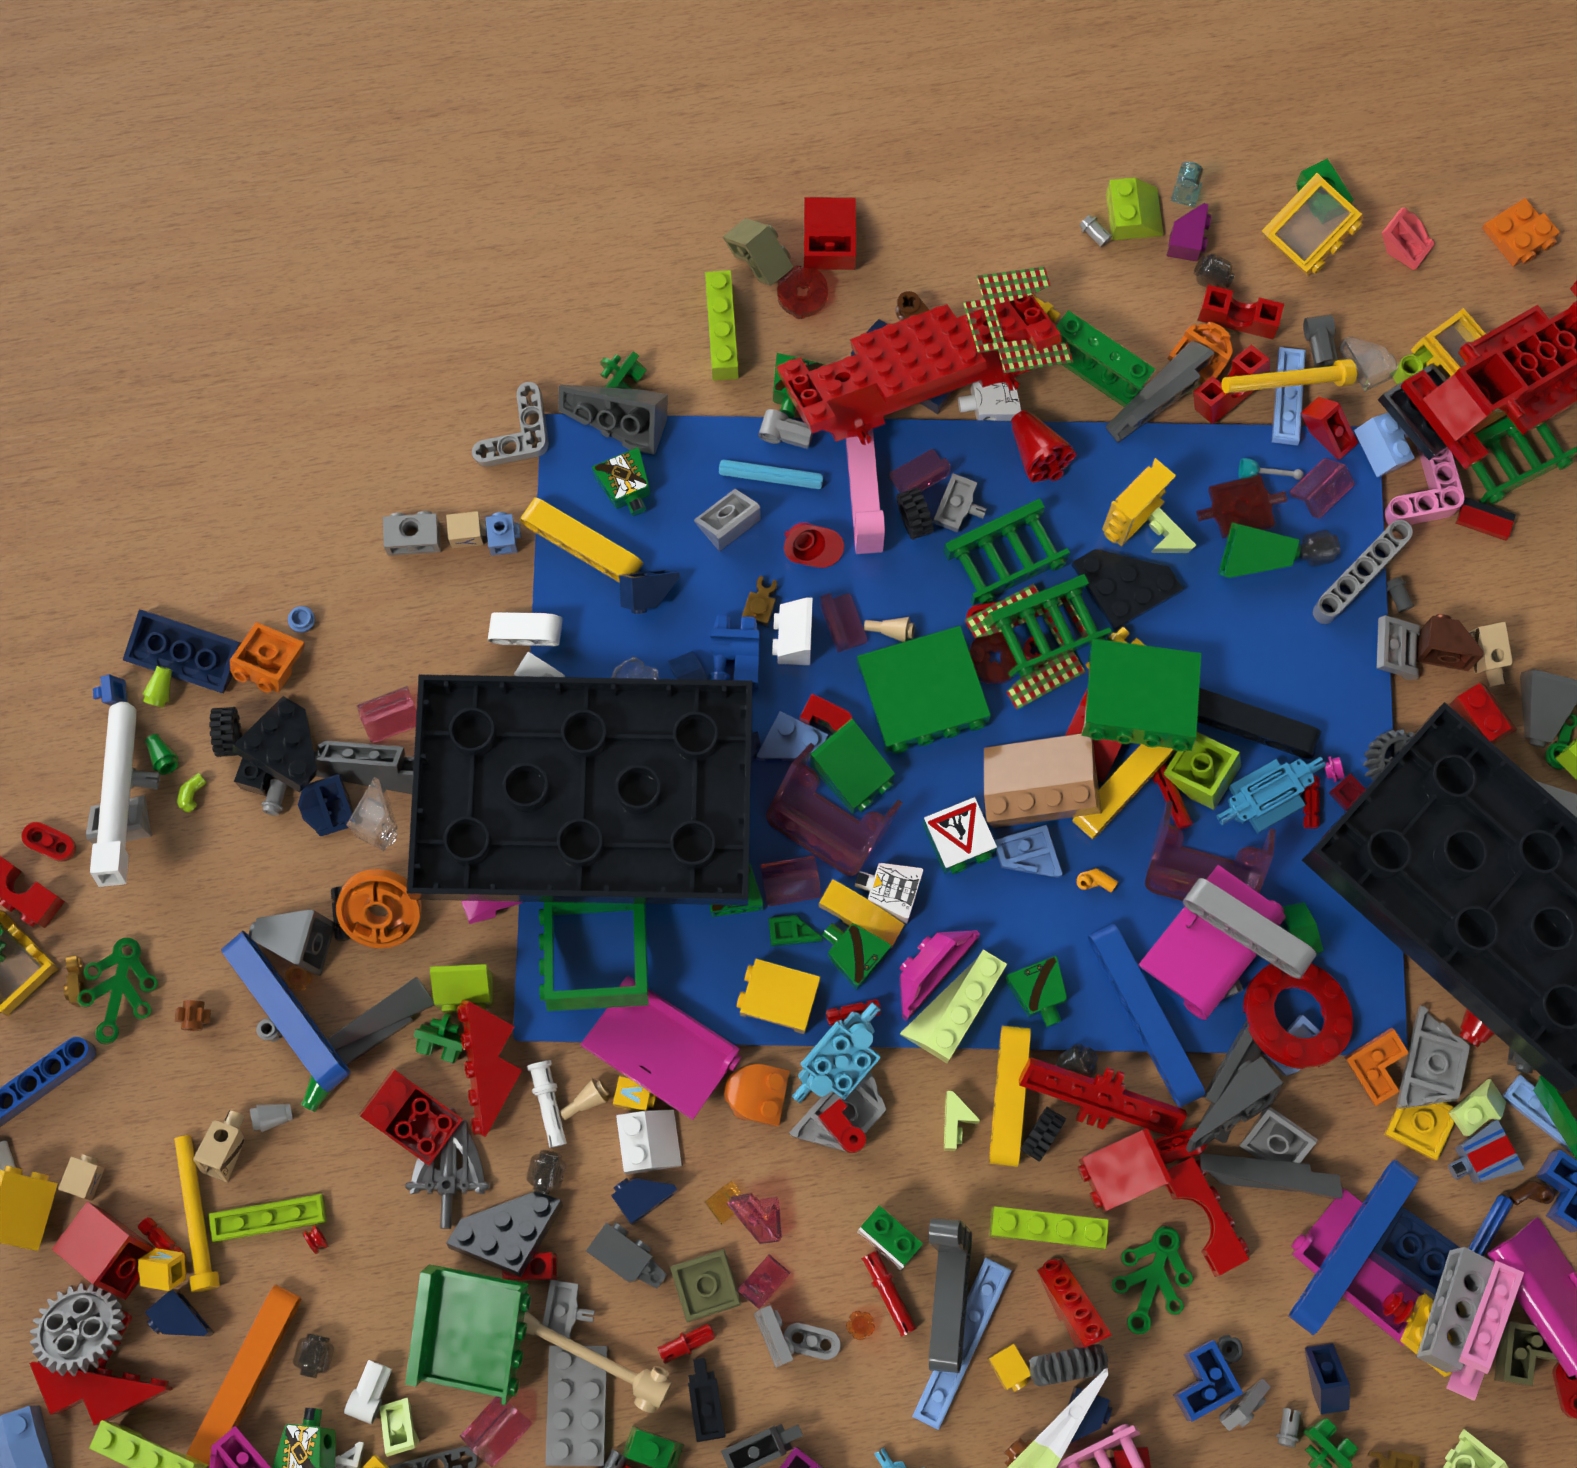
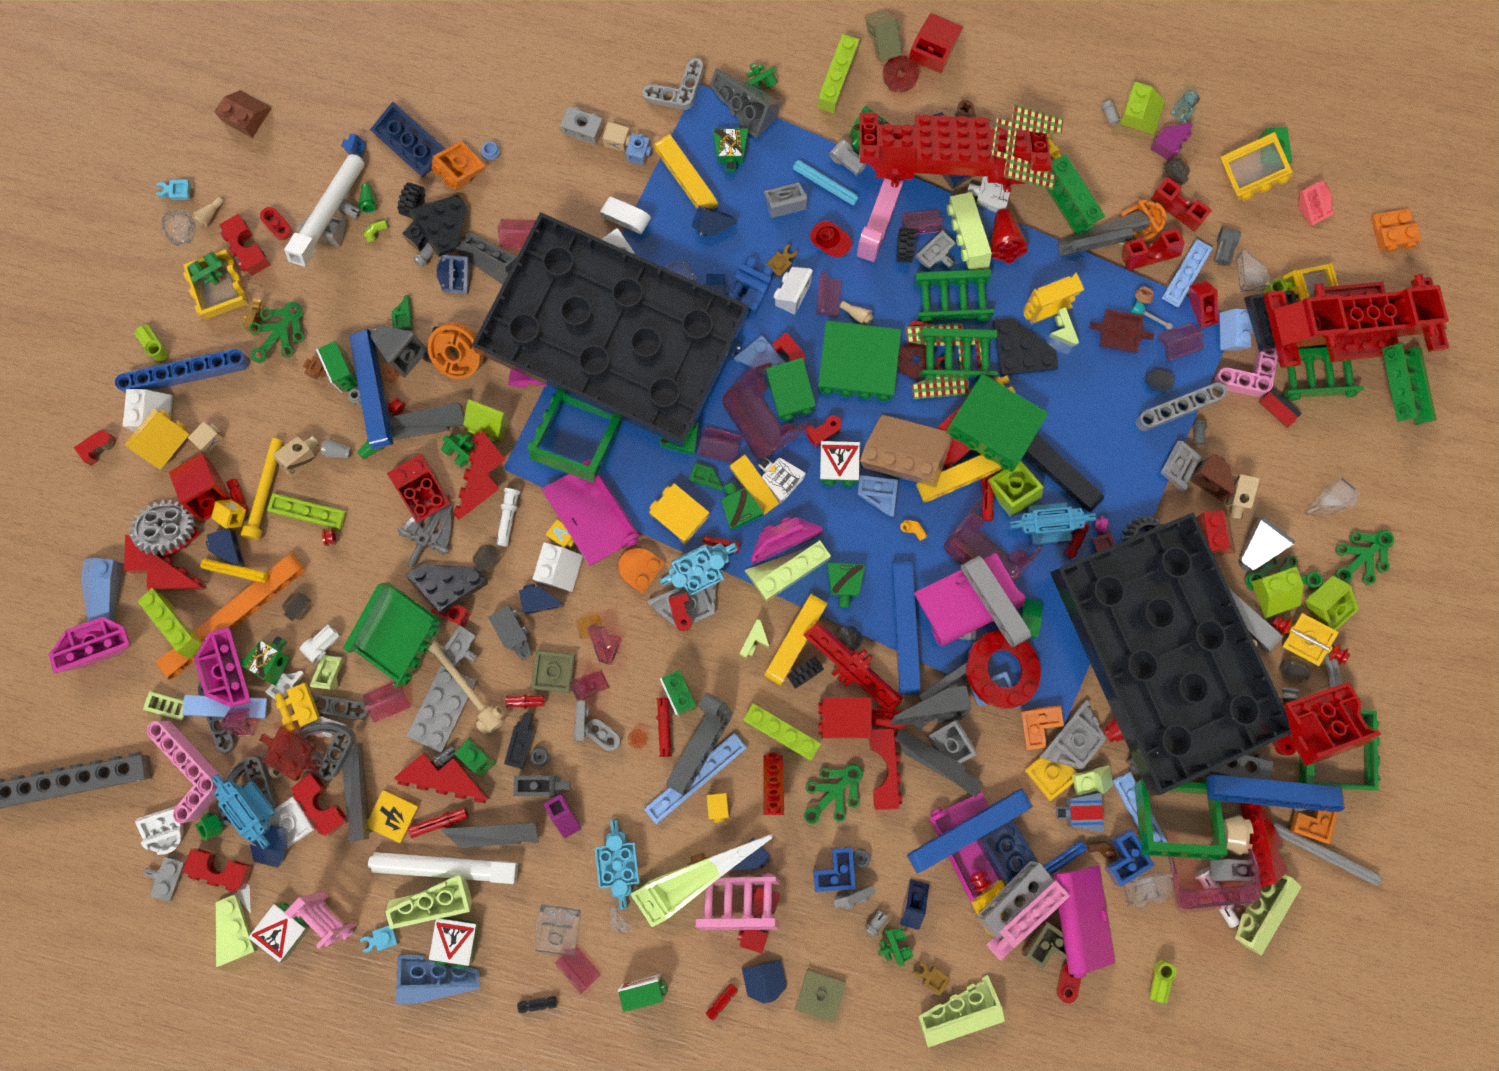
camera: 25 degrees right, 5 degrees up
(158, 688) = (383, 155): lime cone -> none
(205, 1344) = (234, 570): none -> yellow axle
(226, 1001) = (338, 367): none -> green piece
(280, 892) = (402, 315): none -> green tile
(328, 1020) = (396, 406): none -> red bush
(374, 817) = (479, 292): clear slope -> none
(592, 1095) = (535, 524): tan cone -> none
(732, 1407) = (534, 757): none -> dark grey plate
(921, 804) = (824, 432): none -> red leg
(989, 460) = (969, 231): none -> yellowish green wedge
(1068, 1365) = (753, 821): dark grey gear -> none
(1249, 447) = (1144, 295): none -> nougat plate
(1256, 550) = (1117, 363): green slope -> none
(1341, 373) = (1229, 272): yellow piece -> none

